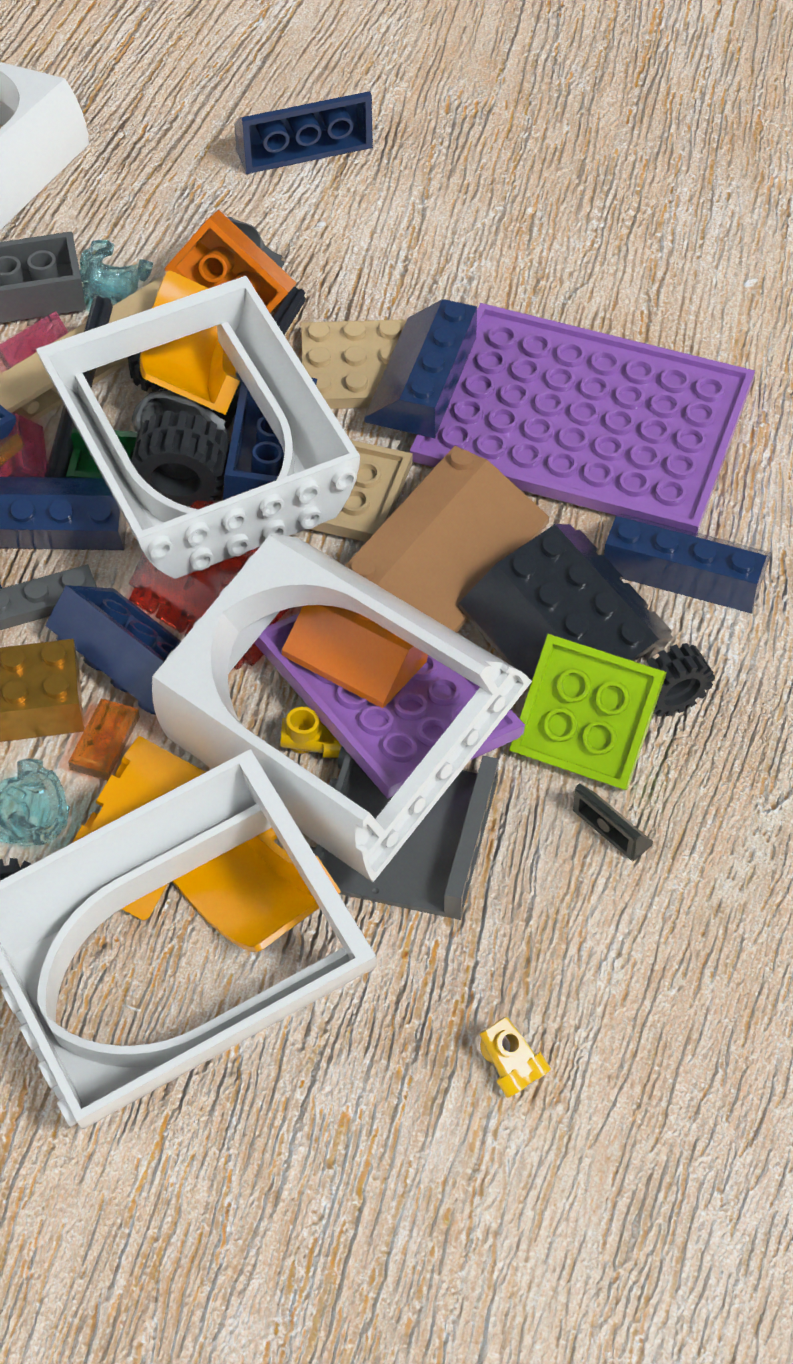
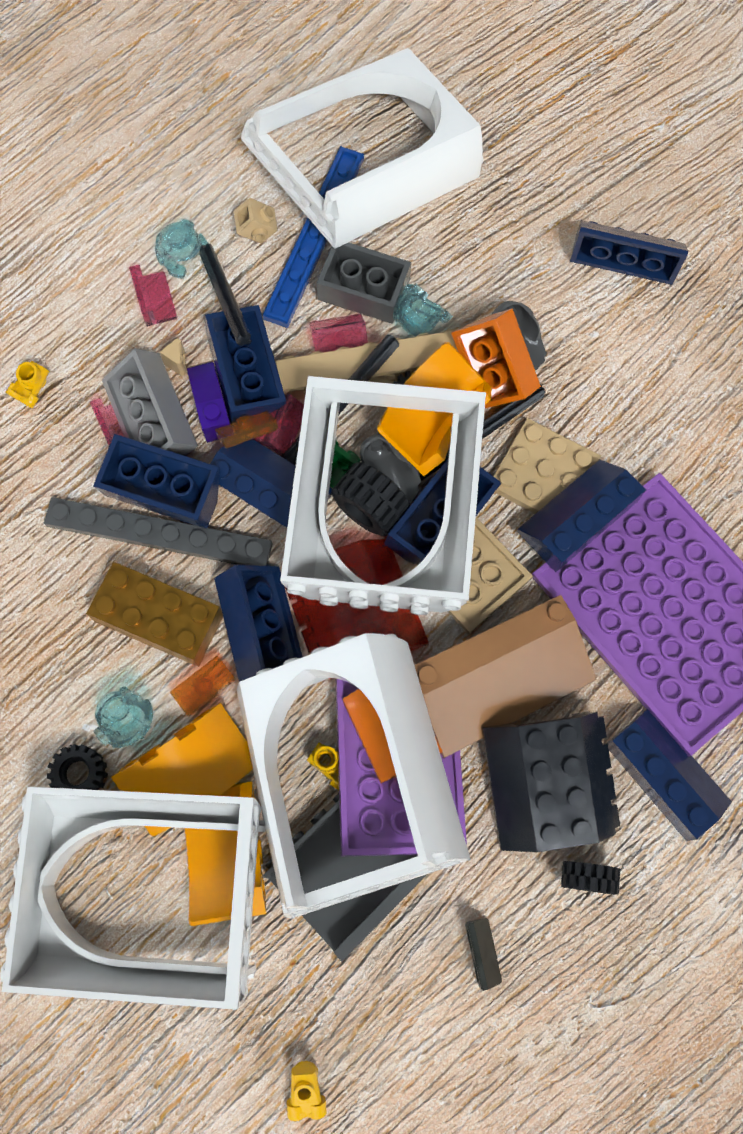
camera: 30 degrees right, 20 degrees up
(588, 711) = (516, 870): lime plate -> none

